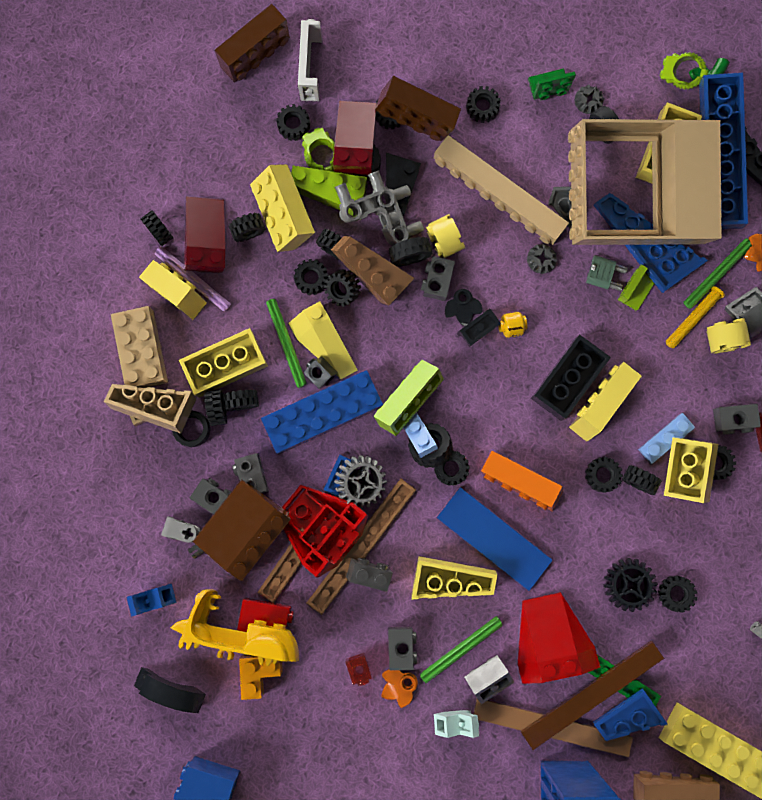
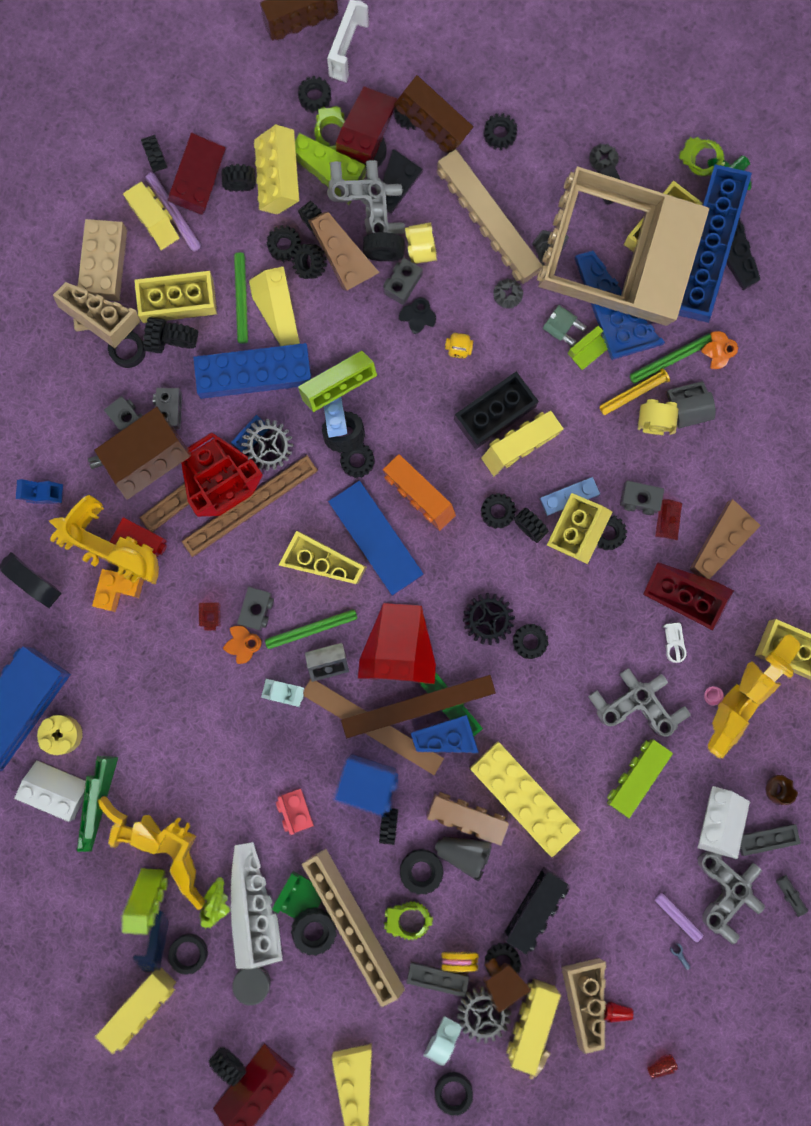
camera: 15 degrees right, 0 degrees up
(179, 530) = (85, 437): light grey piece -> none
(328, 372) = (270, 336): black brick -> none
(369, 574) = (247, 532): flat silver brick -> none
(479, 327) = (425, 337): black panel -> none
(551, 83) = (571, 131): green bracket -> none

